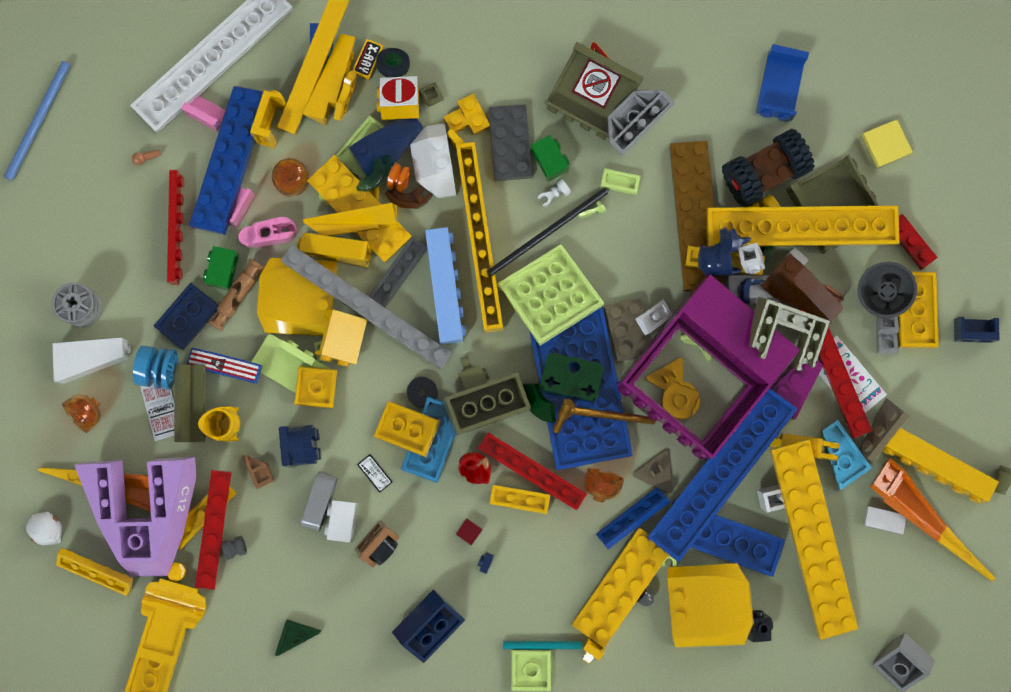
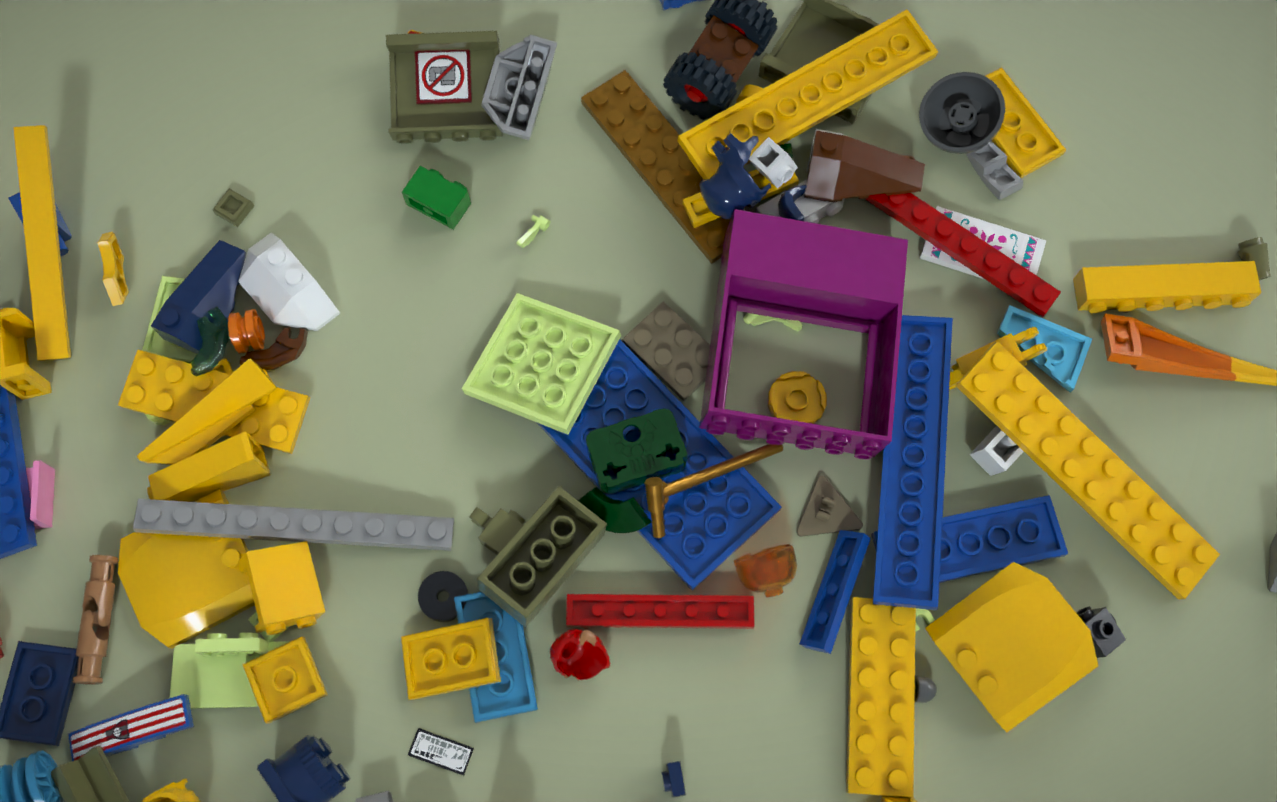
camera: 30 degrees left, 10 degrees down
(221, 268) = (53, 594): green brick -> none
(252, 235) = (79, 523): bright pink piece -> none
(290, 177) = (92, 415): clear orange cylinder -> none
(331, 80) = (82, 261): yellow wedge -> none
(367, 58) = (121, 209): tile -> none
(393, 62) = (157, 194): black wheel -> none
(398, 98) = (188, 231): piece -> none
(398, 272) = (316, 453): dark grey plate -> none
(444, 286) = (391, 435): light blue brick -> none
(453, 138) = (298, 243): yellow tile -> none
(456, 121) = (286, 221): yellow plate -> none
(469, 531) = (624, 751): dark red tile -> none
(474, 114) = (304, 200): yellow plate -> none
(479, 237) = (404, 347): yellow brick -> none
(510, 142) = (374, 209): dark grey plate -> none
(519, 499) = (667, 660): yellow plate -> none
(547, 232) = (487, 290): black piece -> none
(561, 187) = (474, 224): white piece -> none
(620, 181) = (546, 177): yellowish green tile -> none
(654, 317) = (695, 313): white plate -> none
(667, 375) = (758, 378): yellow piece -> none
(797, 385) = (930, 285): magenta wing -> none
(811, 328) = (904, 205): olive wedge -> none
(883, 429) = (1073, 275): dark tan wing -> none
(884, 520) = (1152, 395): white tile -> none
(914, 244) = (958, 52): red plate -> none
(976, 330) = (1096, 105): dark blue panel -> none

